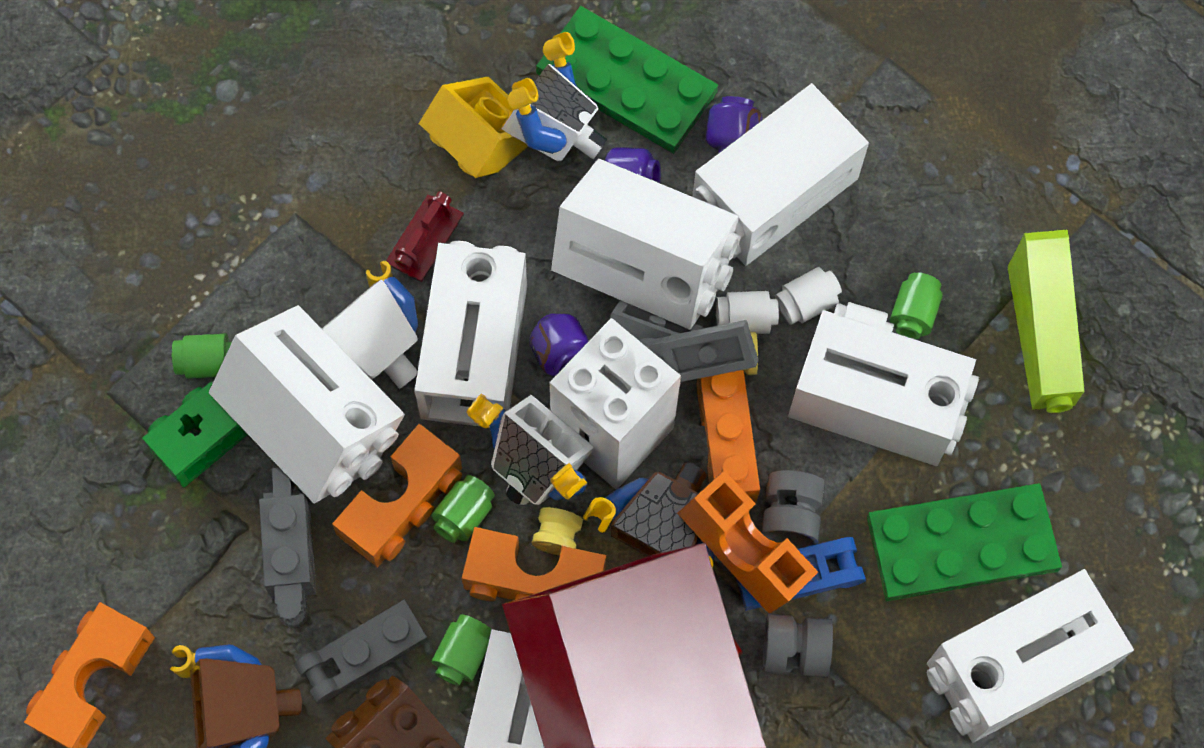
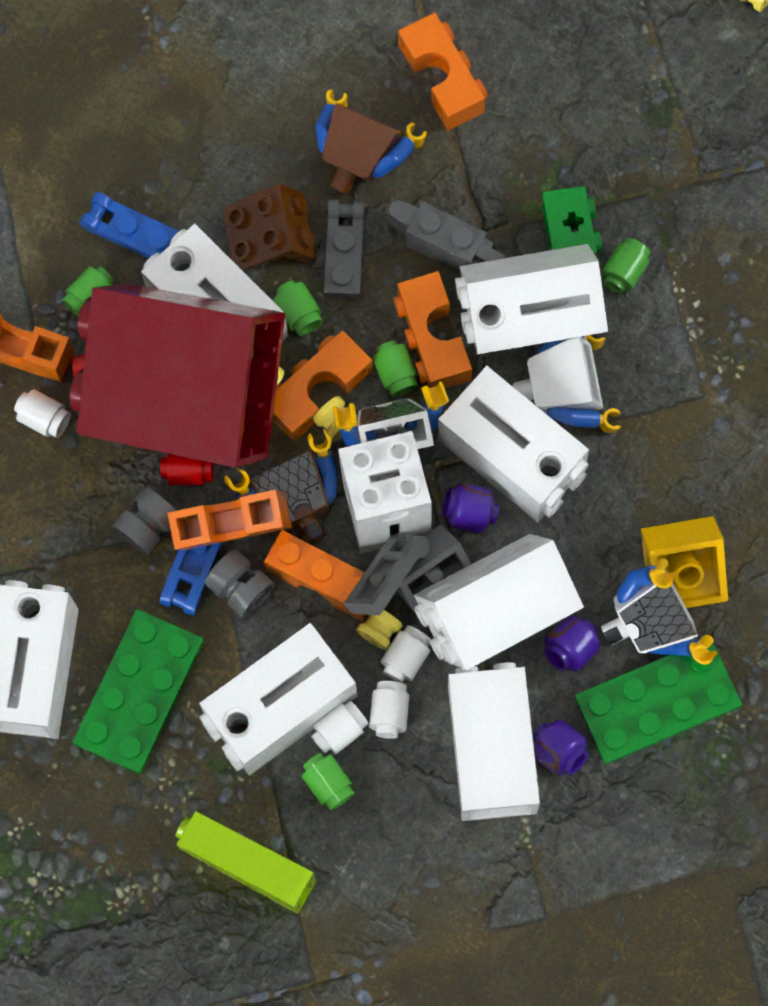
camera: 130 degrees right, 5 degrees up
(419, 243) = (621, 470): dark red hinge -> none

